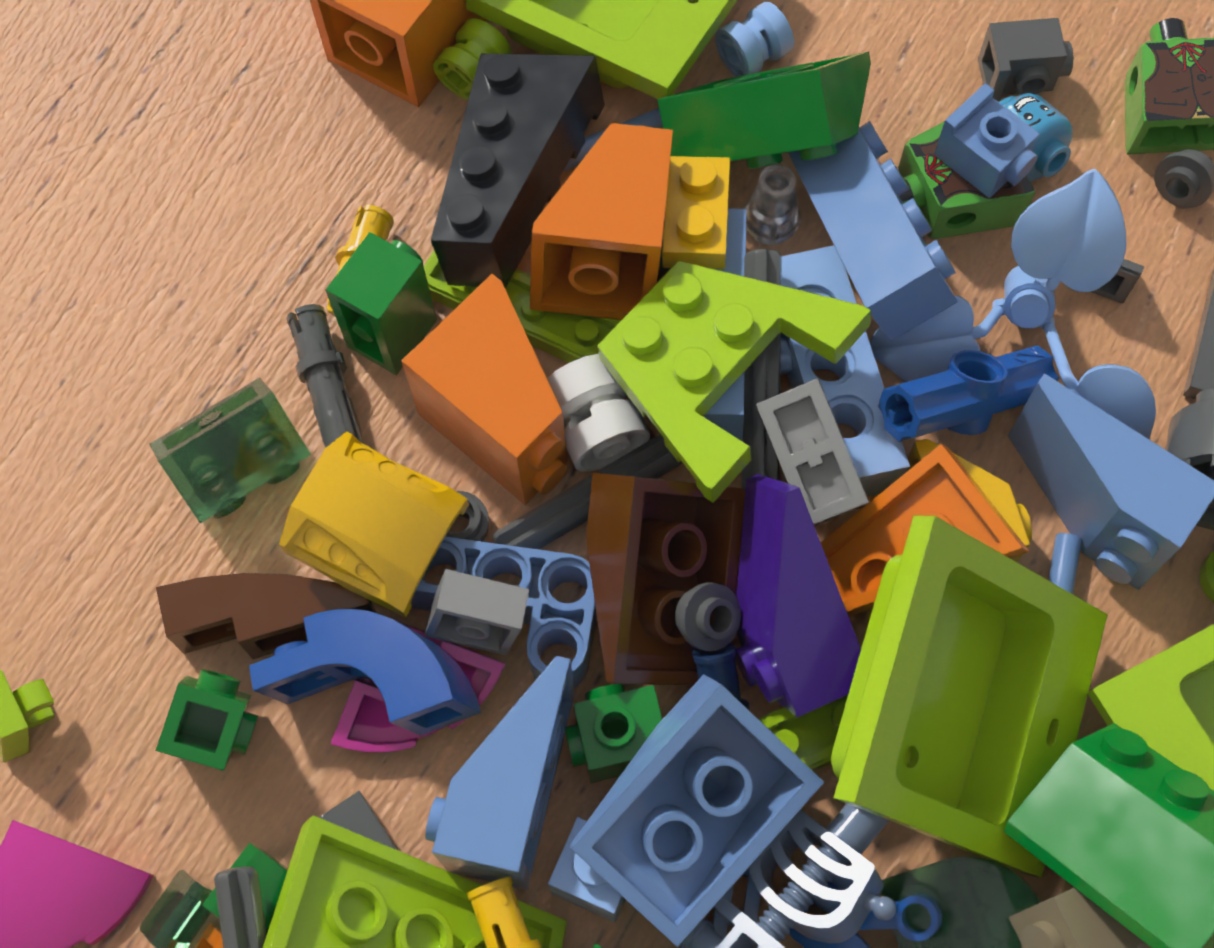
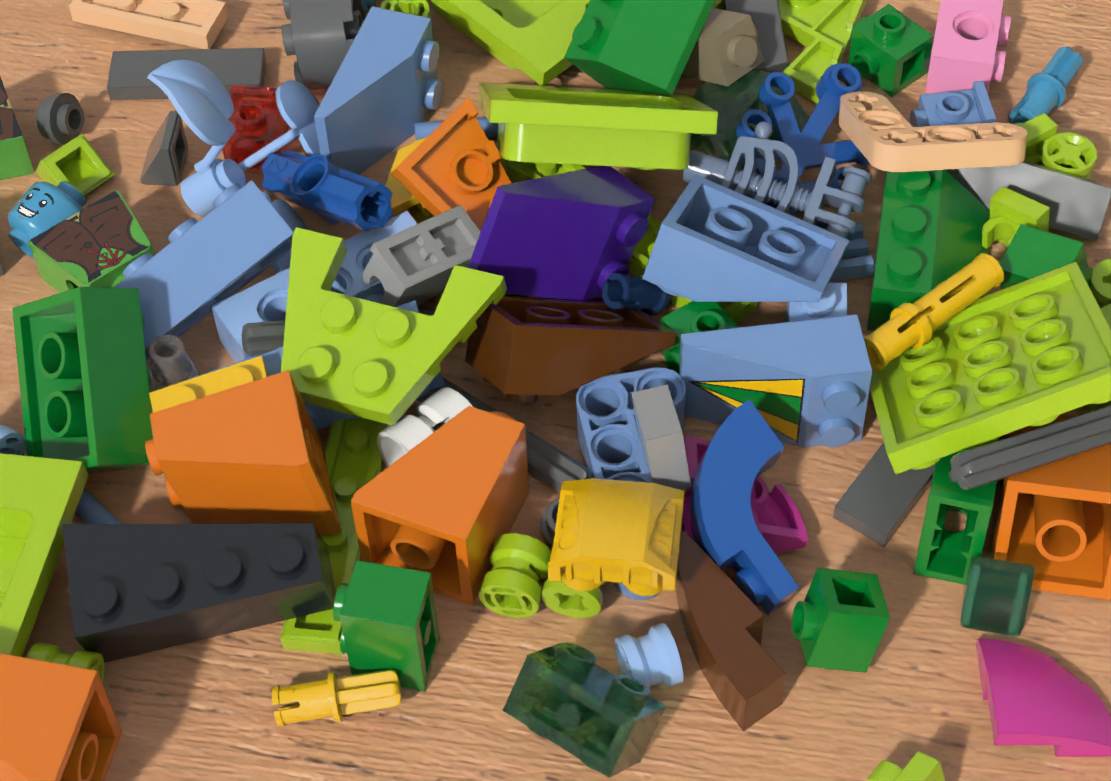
camera: 110 degrees left, 15 degrees down
(259, 532) = (650, 657): none -> light blue wheel
(323, 372) = (467, 682): dark grey pin -> none
(411, 443) = (514, 581): none -> lime wheel
(694, 614) = (591, 294): dark grey plate -> none
(987, 143) = (86, 215): medium blue brick -> none
(1113, 343) = (255, 122): none -> clear red brick
(1121, 176) = (77, 165): none -> lime slope

